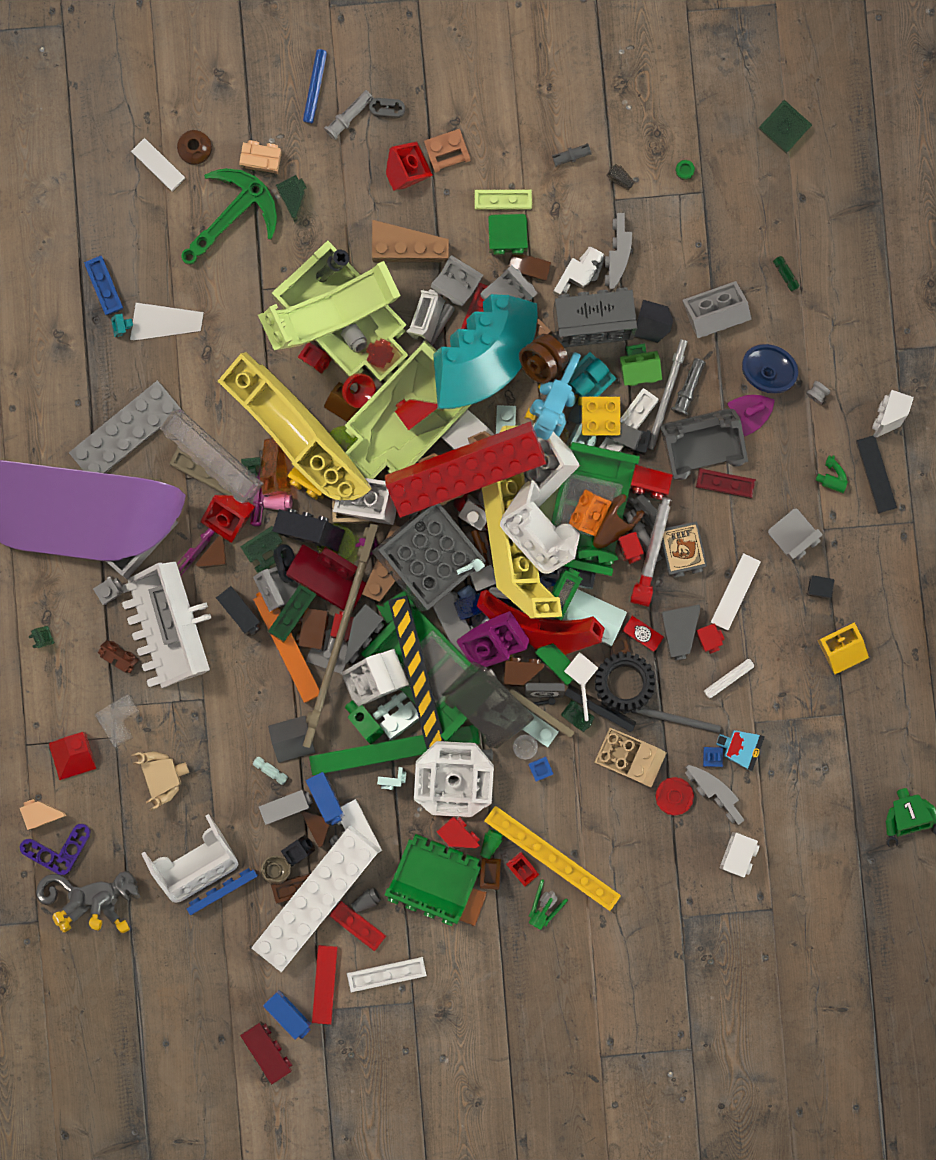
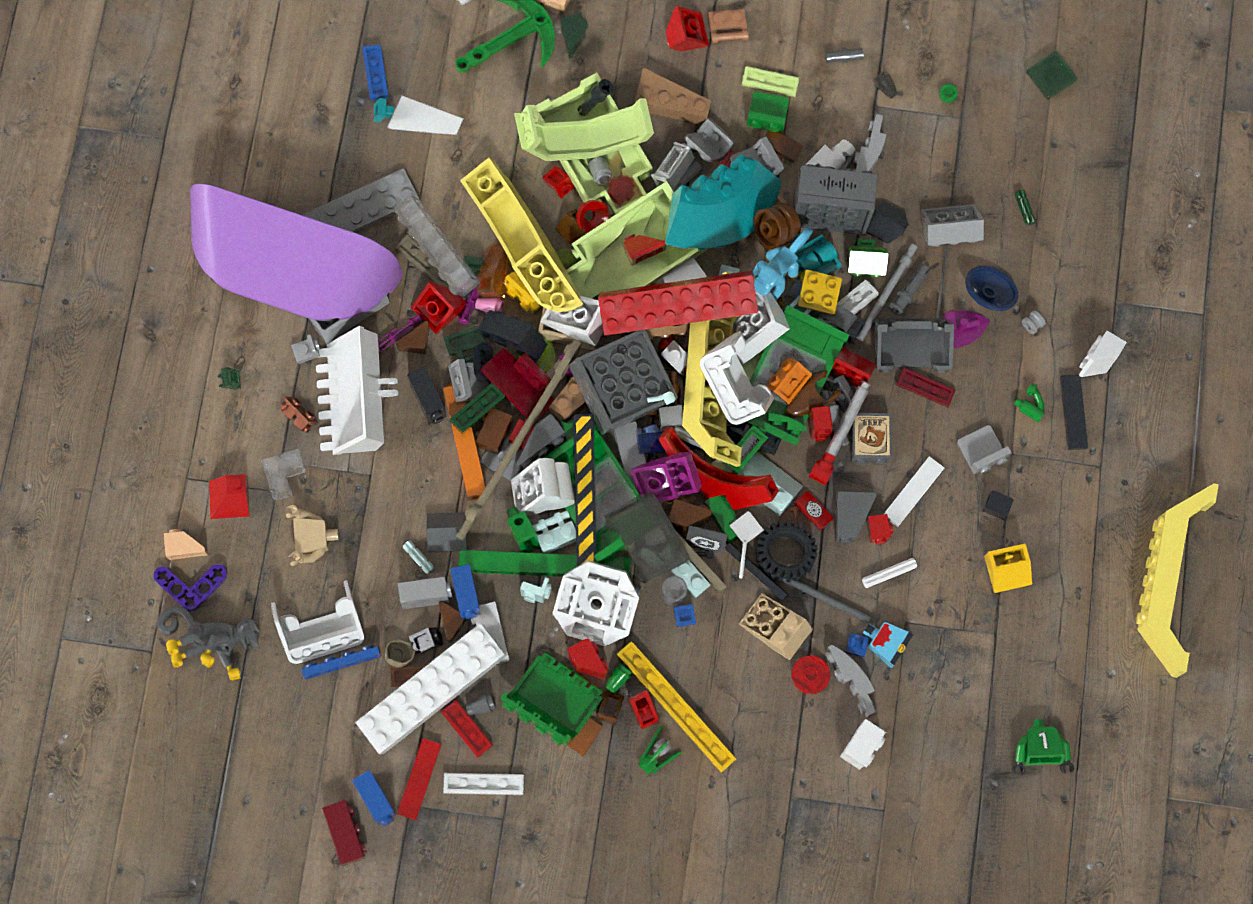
camera: 10 degrees right, 10 degrees down
(163, 615) = (352, 384): light grey plate -> none
(575, 715) = (730, 572): clear green bracket -> none

